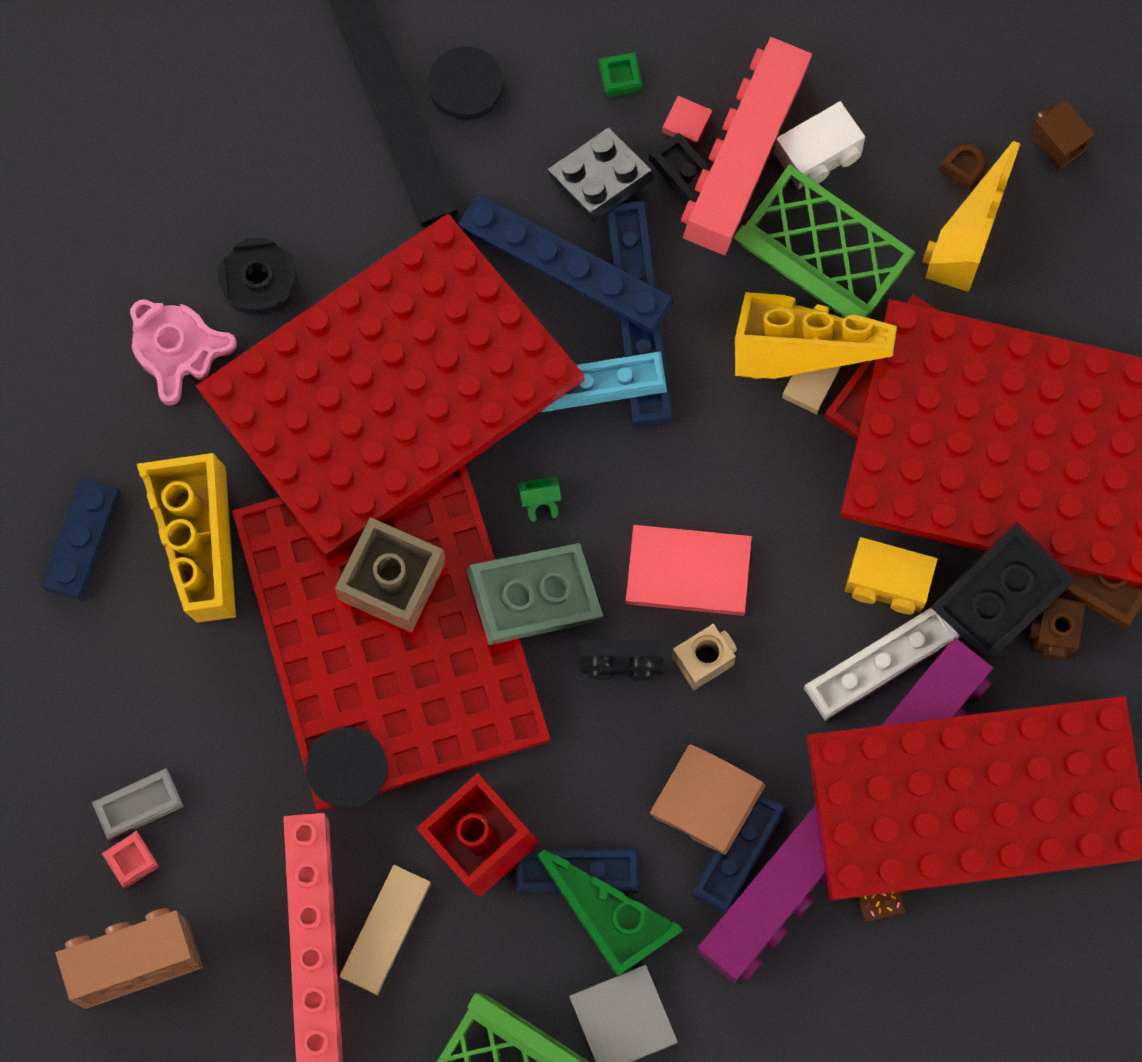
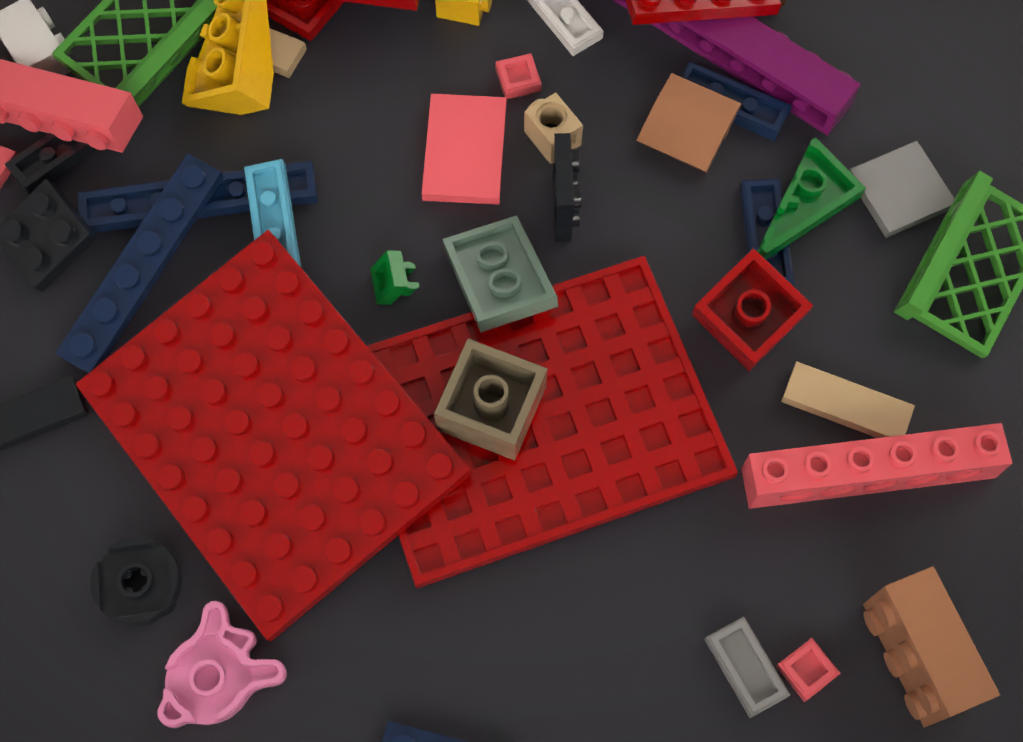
camera: 95 degrees left, 5 degrees down
(194, 527) = (430, 624): yellow wedge -> none
(346, 767) = (693, 443): black piece -> none
(775, 628) = (518, 76): none -> coral tile

